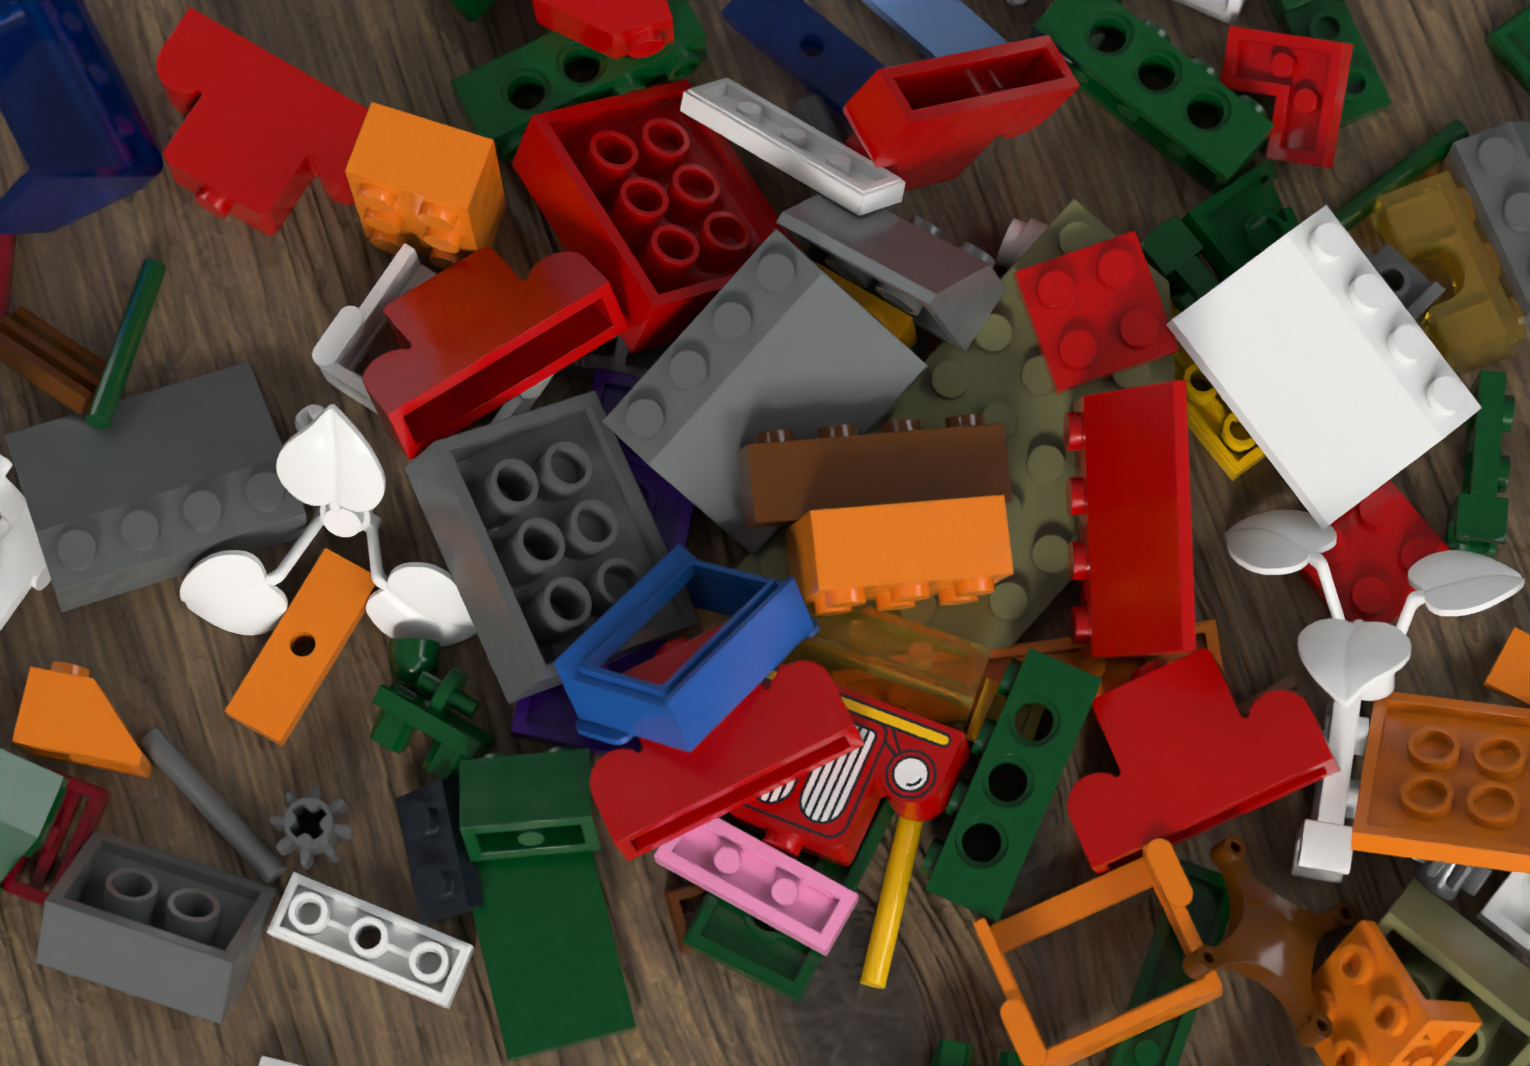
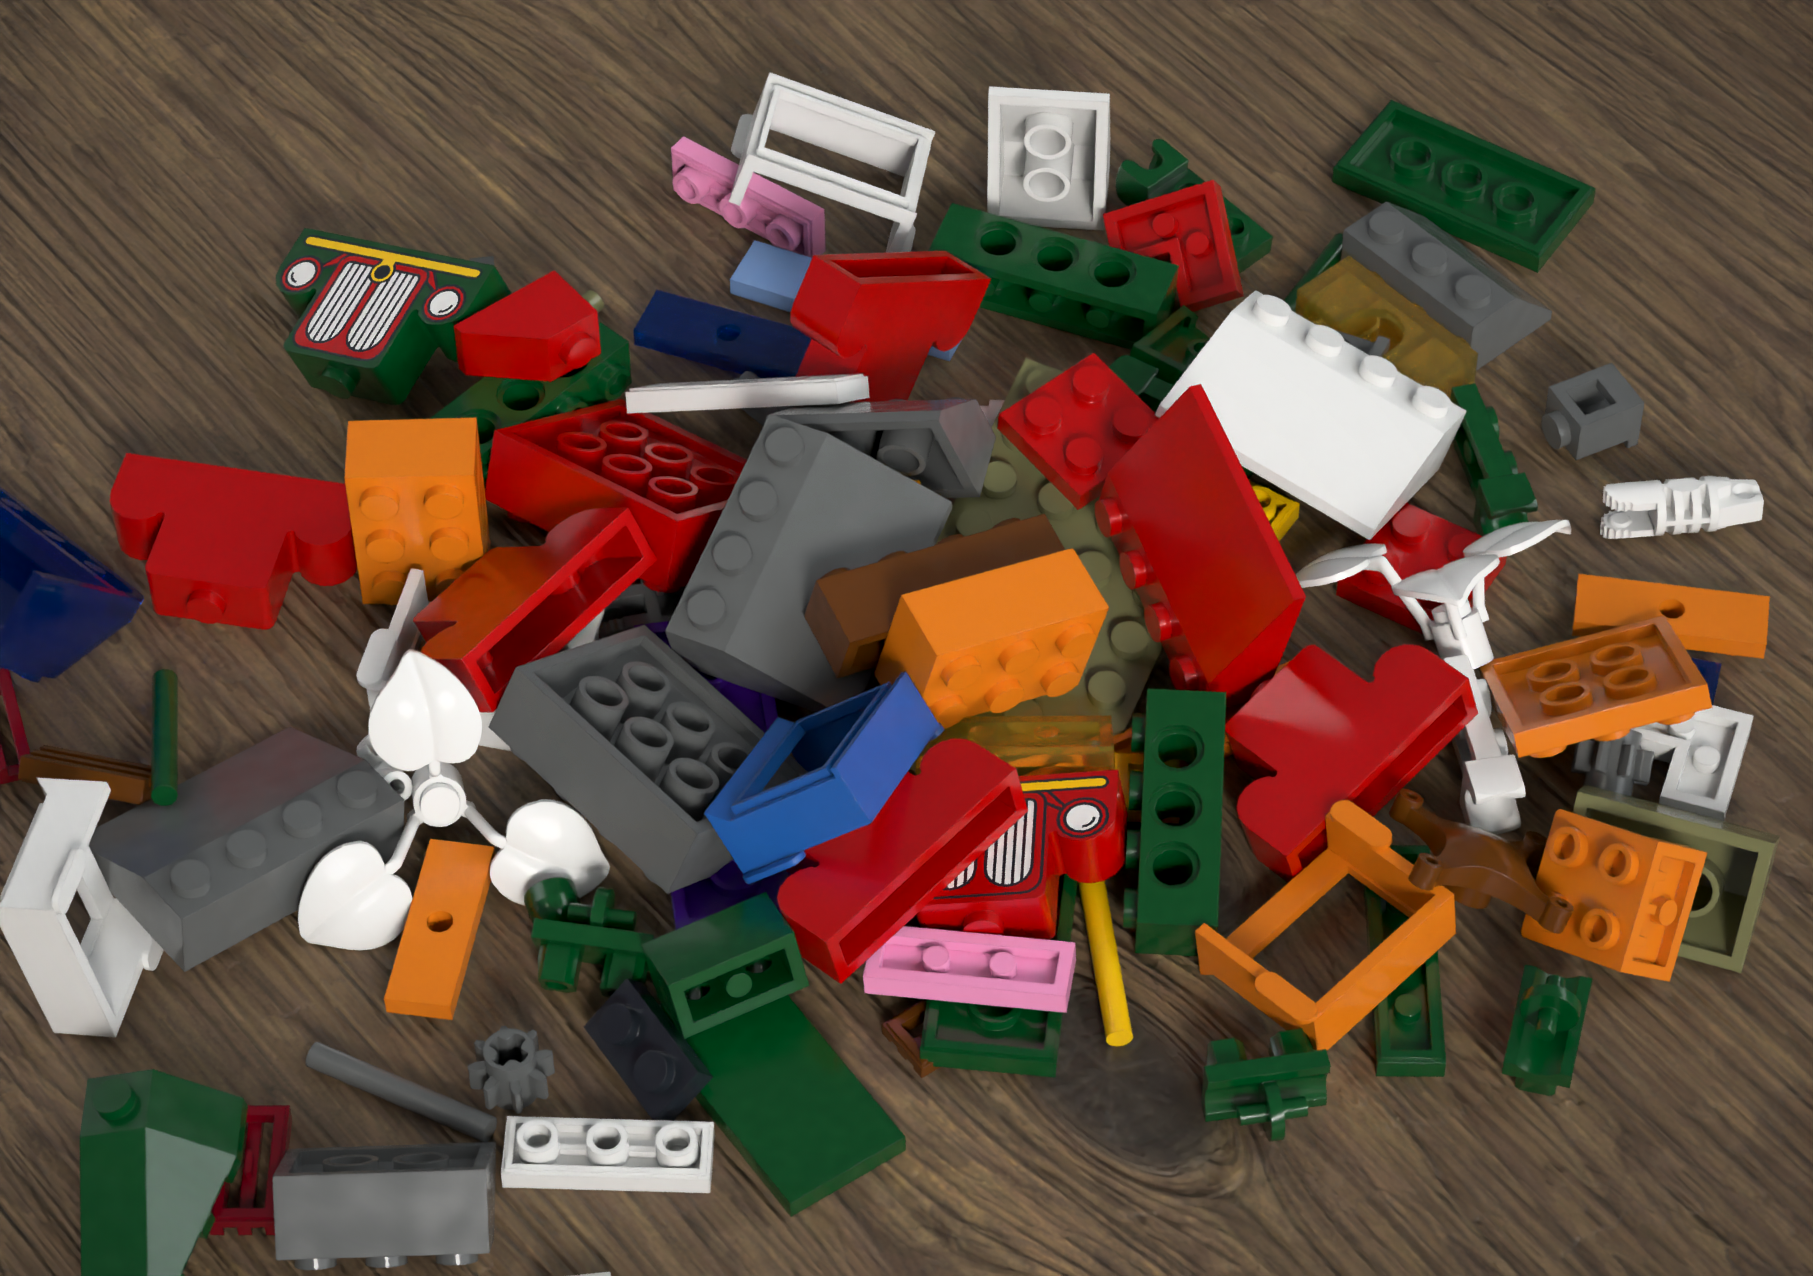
camera: 20 degrees left, 25 degrees down
(74, 722) = (246, 1052): orange slope -> none

